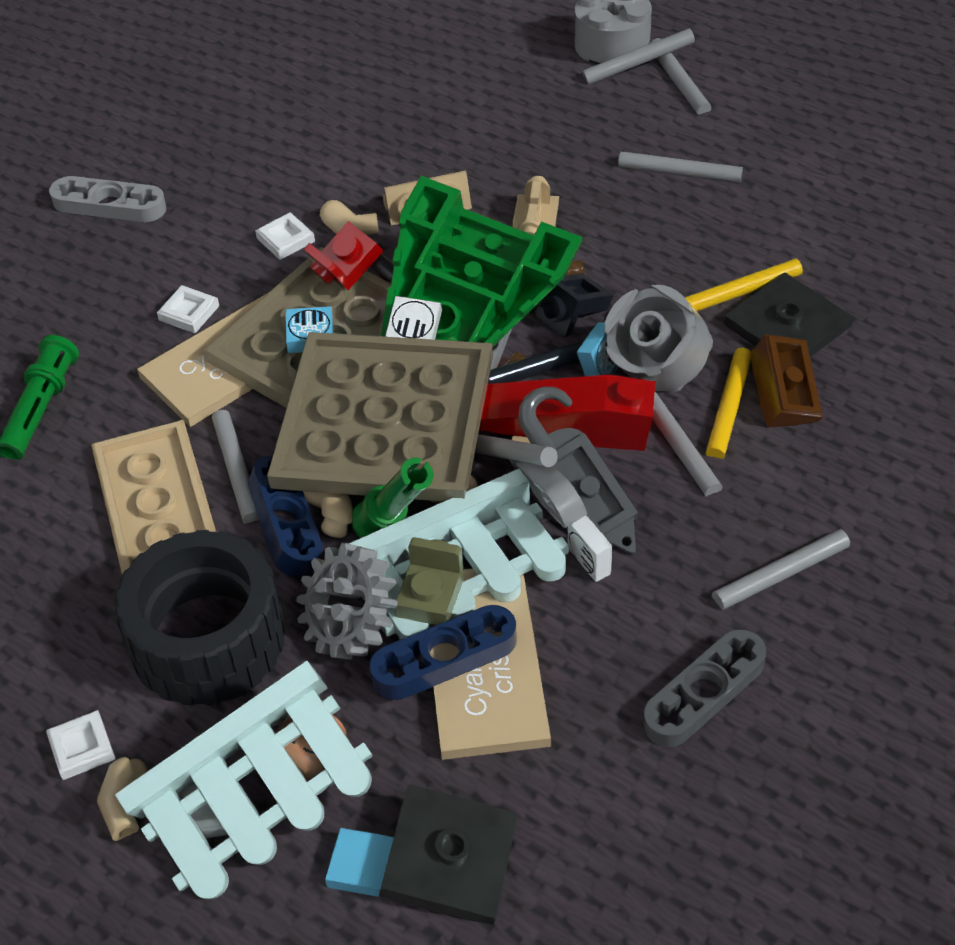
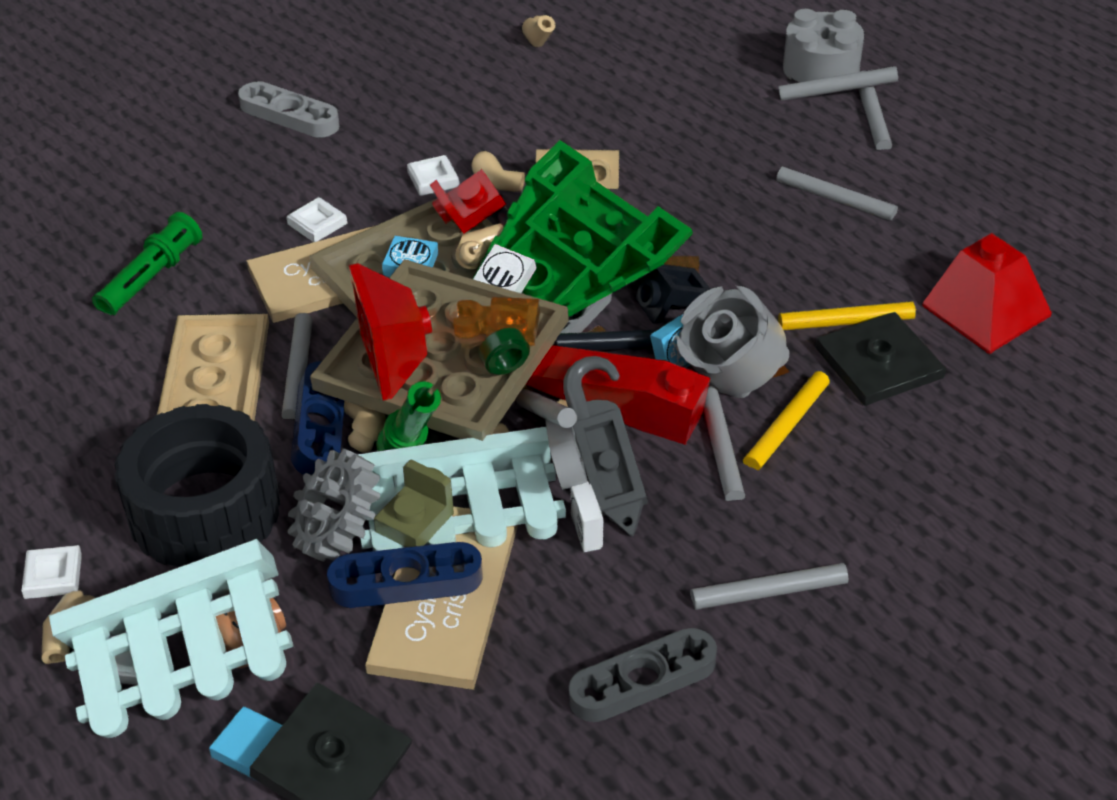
camera: 15 degrees right, 5 degrees down
(326, 64) = (538, 29): none -> tan arm
(334, 409) = (389, 327): none -> red slope
(367, 300) = (475, 245): none -> tan arm
(443, 372) = (501, 314): none -> clear orange plate
(456, 404) = (504, 351): none -> dark green tile
(535, 206) = (679, 197): tan hinge -> none
(785, 381) = (850, 412): reddish brown slope -> none
(863, 235) = (989, 294): none -> red slope

